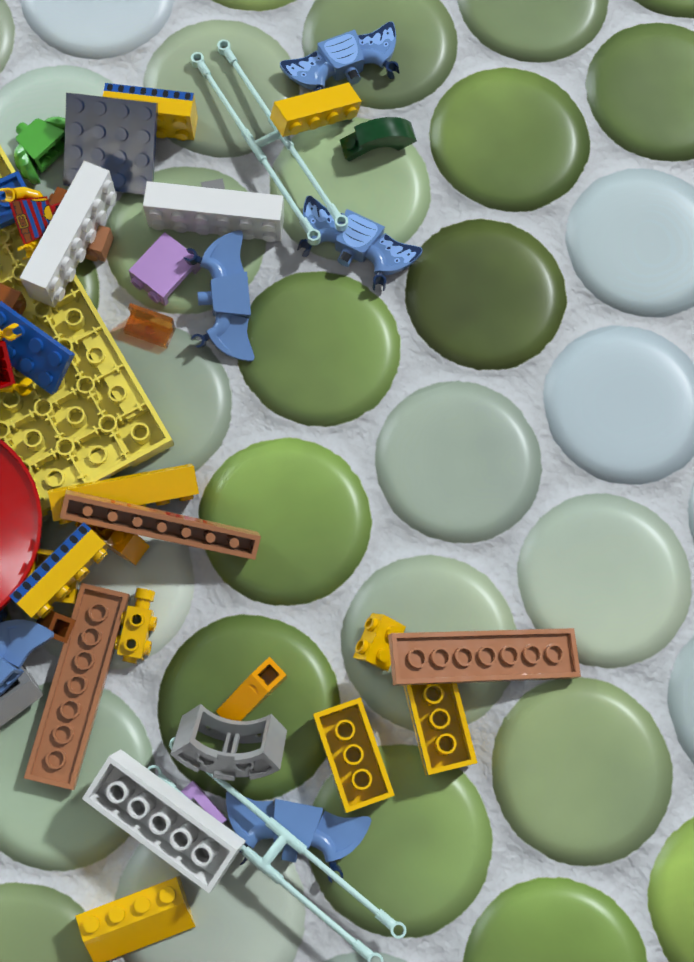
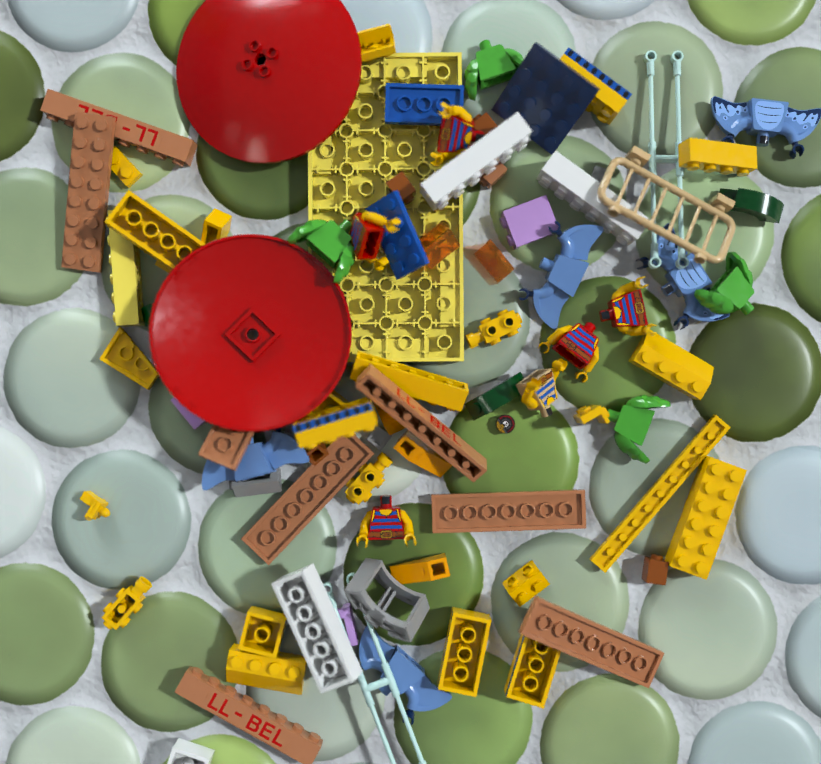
camera: 35 degrees right, 15 degrees up
(78, 335) = (438, 244): none -> clear orange panel
(106, 871) = (263, 632): none -> yellow brick
(125, 576) = (378, 437): none -> light grey tile
(182, 563) = (421, 454): none -> light orange slope
(184, 663) = (386, 523): none -> torso
(197, 389) = (500, 327): none -> yellow brick
(228, 457) = (494, 397): none -> dark green arch
(257, 484) = (505, 423): none -> tile
(270, 423) = (539, 388): none -> torso
(283, 361) = (577, 346): none -> torso
(312, 573) = (508, 511): none -> nougat plate
(316, 298) = (627, 310): none -> torso
(343, 413) = (588, 413): none -> yellow bracket
(345, 154) = (717, 206): none -> tan bar
(391, 407) = (634, 422): none -> bright green torso
(396, 330) = (673, 365): none -> yellow slope
(407, 226) = (731, 289): none -> bright green torso
(462, 466) = (659, 493): none -> yellow plate
(507, 544) = (655, 569): none -> dark orange brick
(524, 460) = (705, 517): none -> yellow brick

